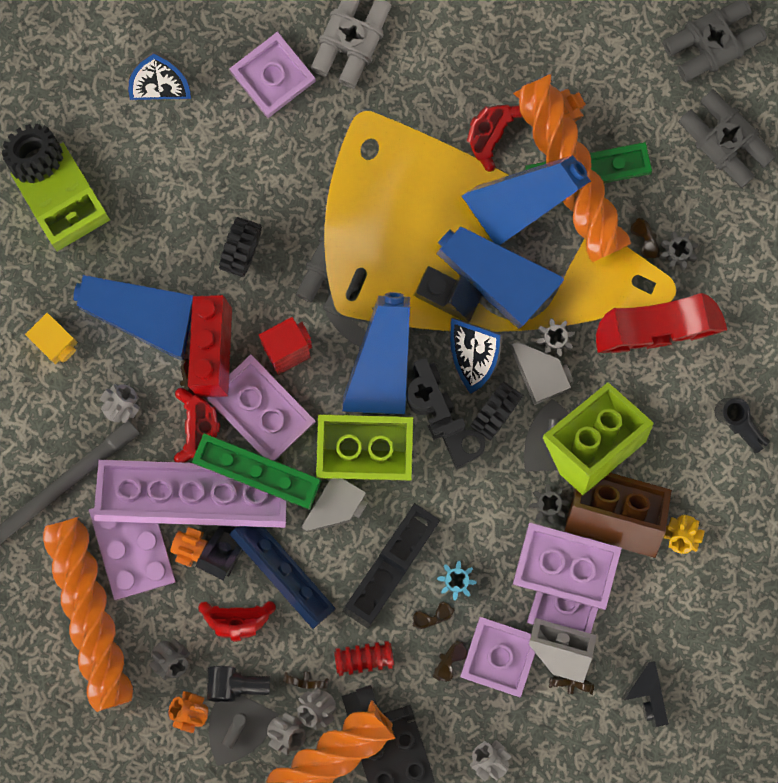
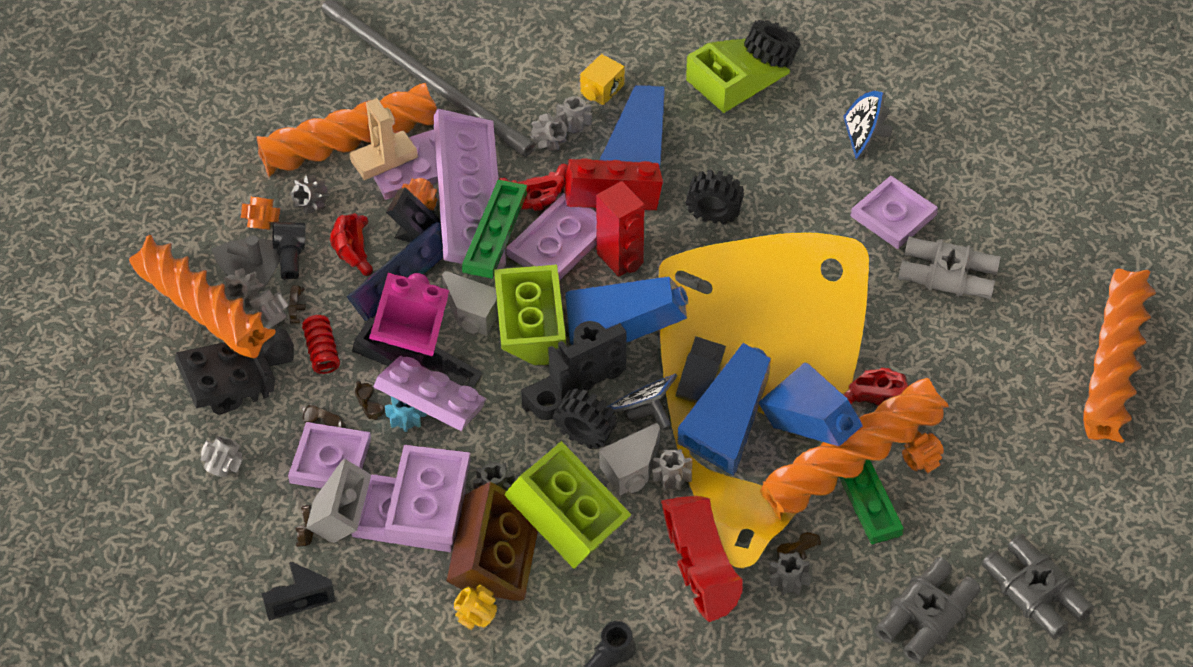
camera: 85 degrees right, 30 degrees down
(97, 366) = (575, 114): none -> light grey gear
(131, 578) = (386, 148): none -> tan bracket
(366, 566) = (410, 313): none -> dark pink slope
(450, 554) = (430, 392): none -> lavender plate

